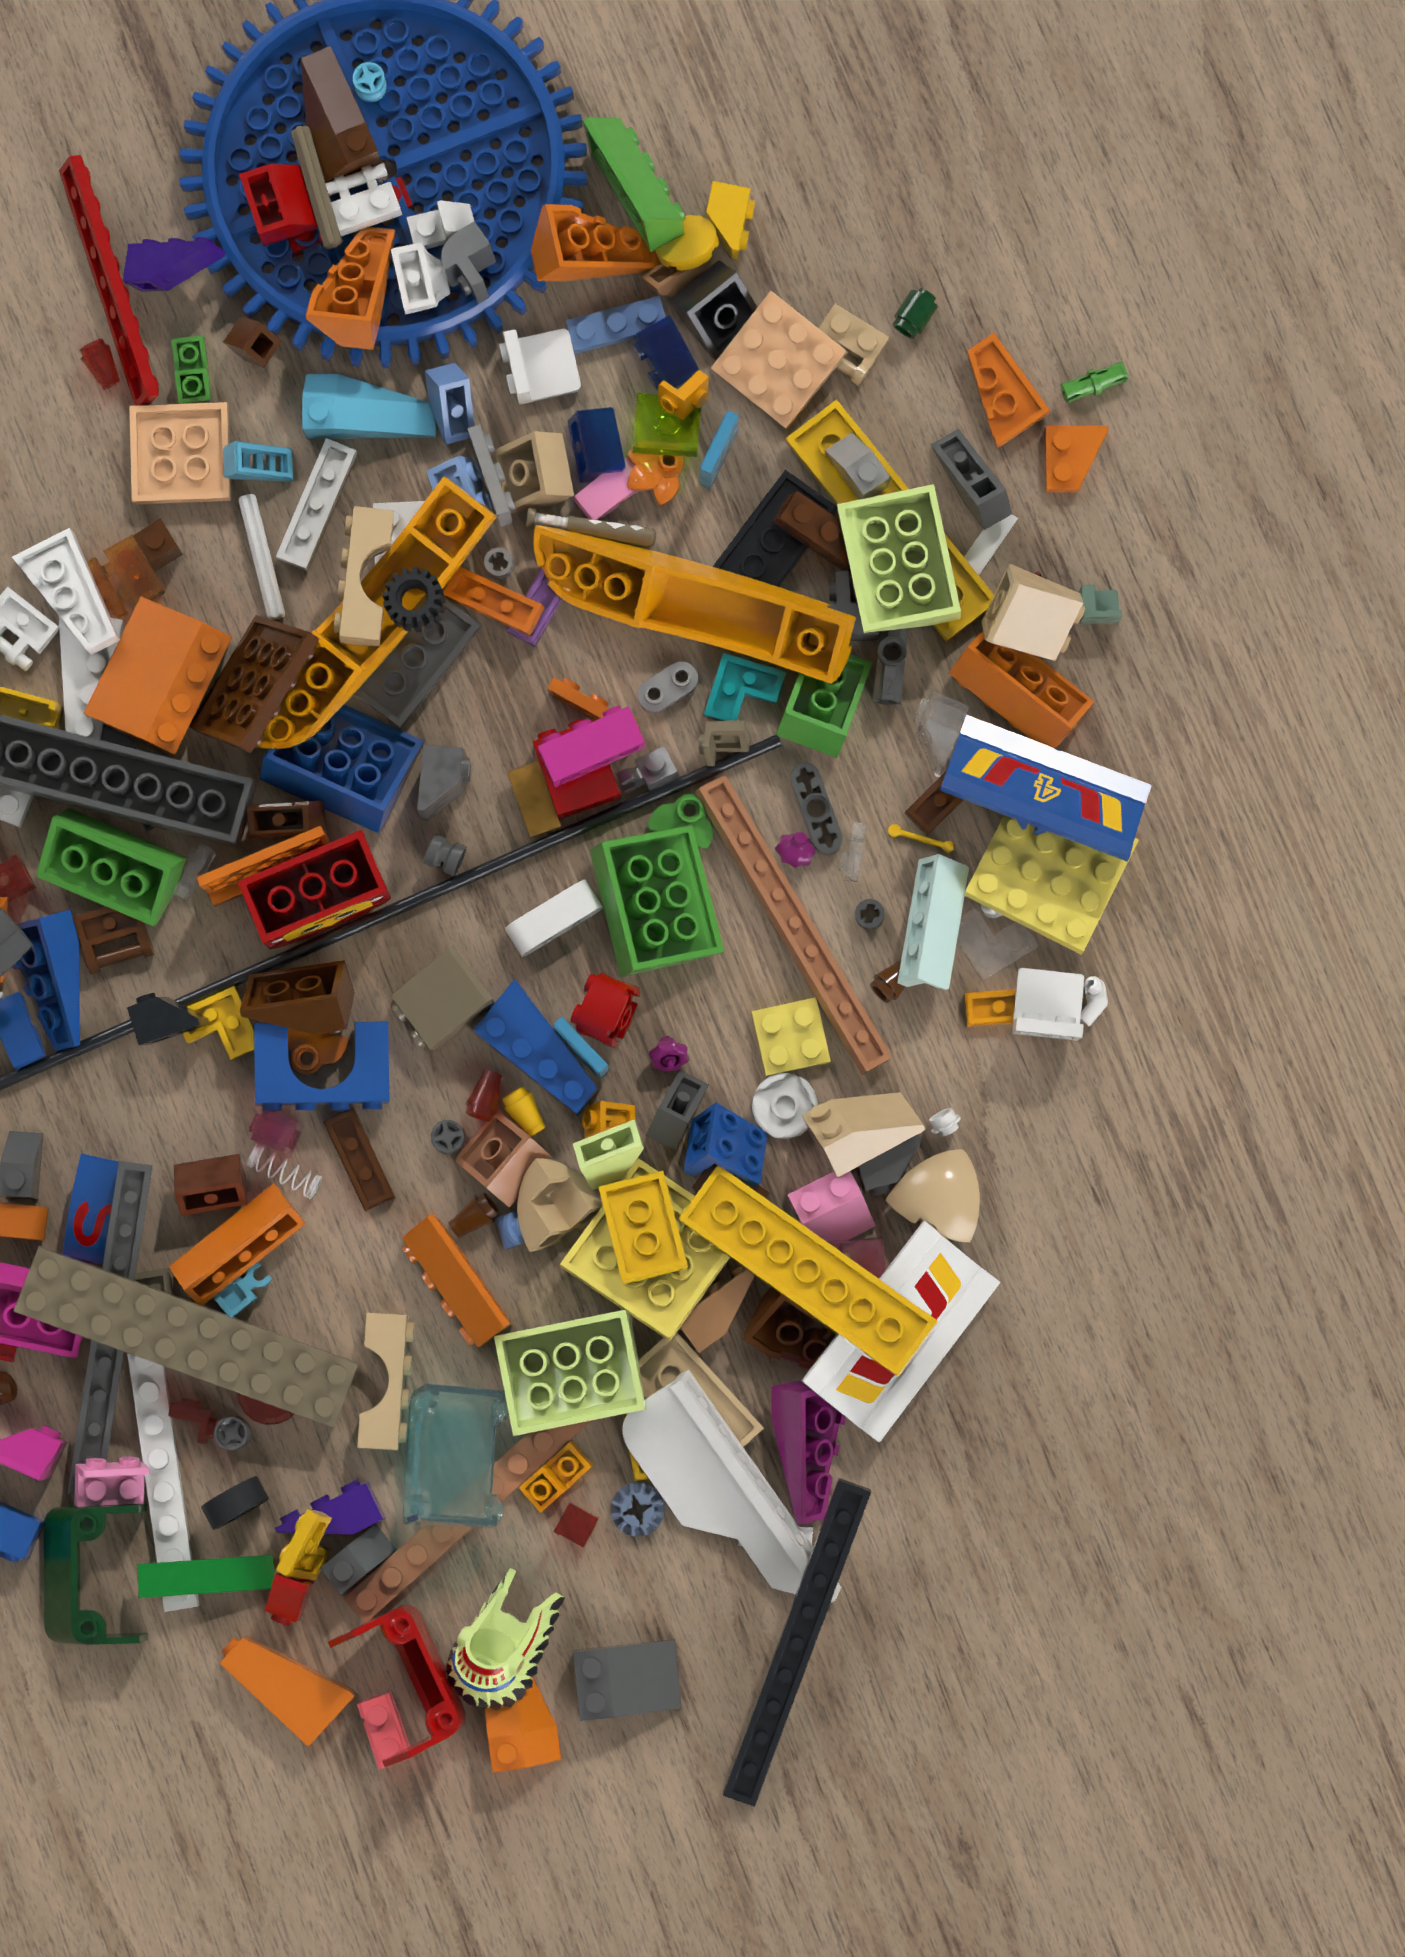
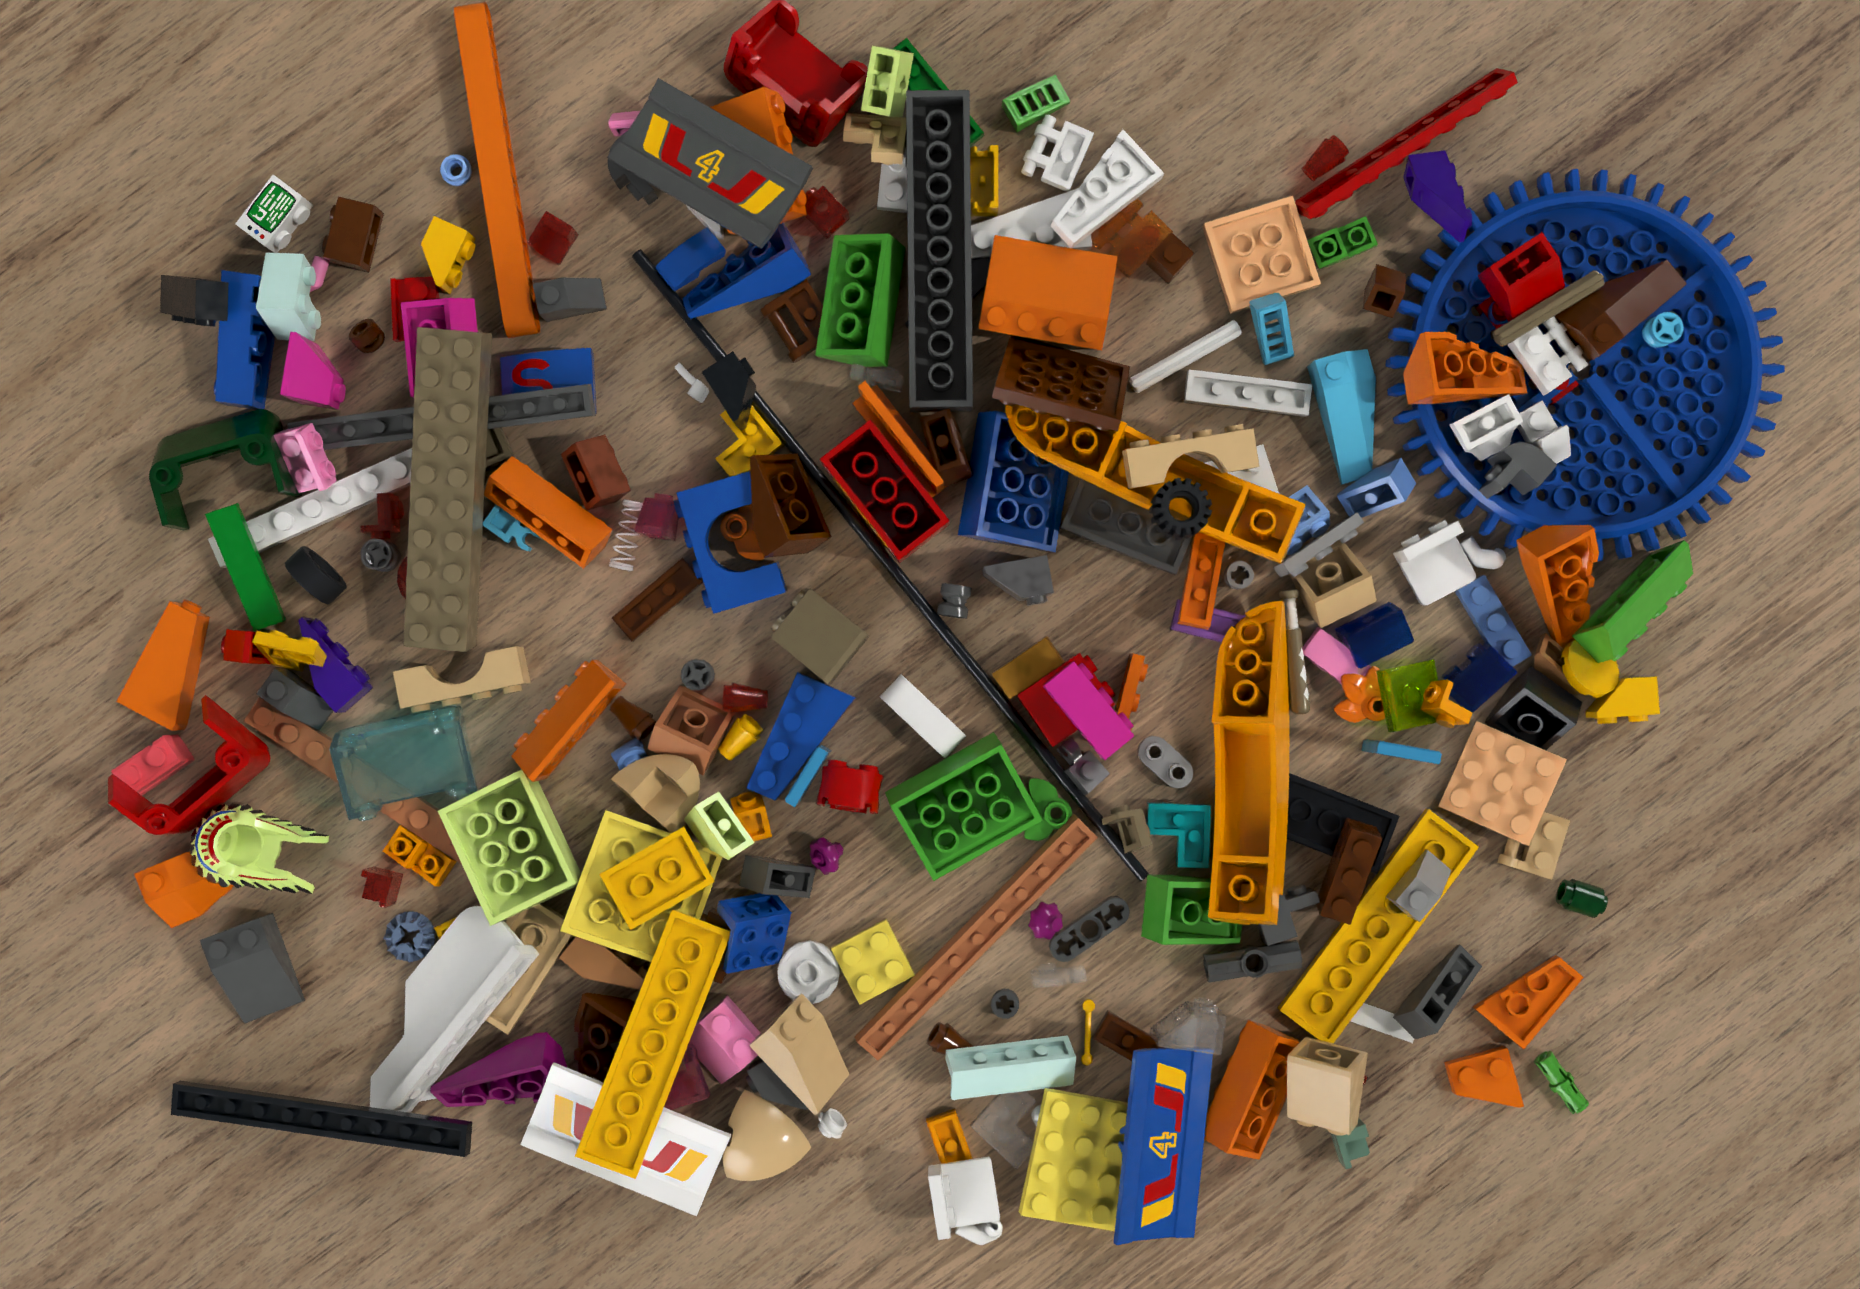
camera: 75 degrees right, 5 degrees up
(153, 1058) = (698, 389): none -> white hand
(548, 317) = (1482, 557): none -> white arm
(899, 560) = (1343, 951): yellowish green slope -> none

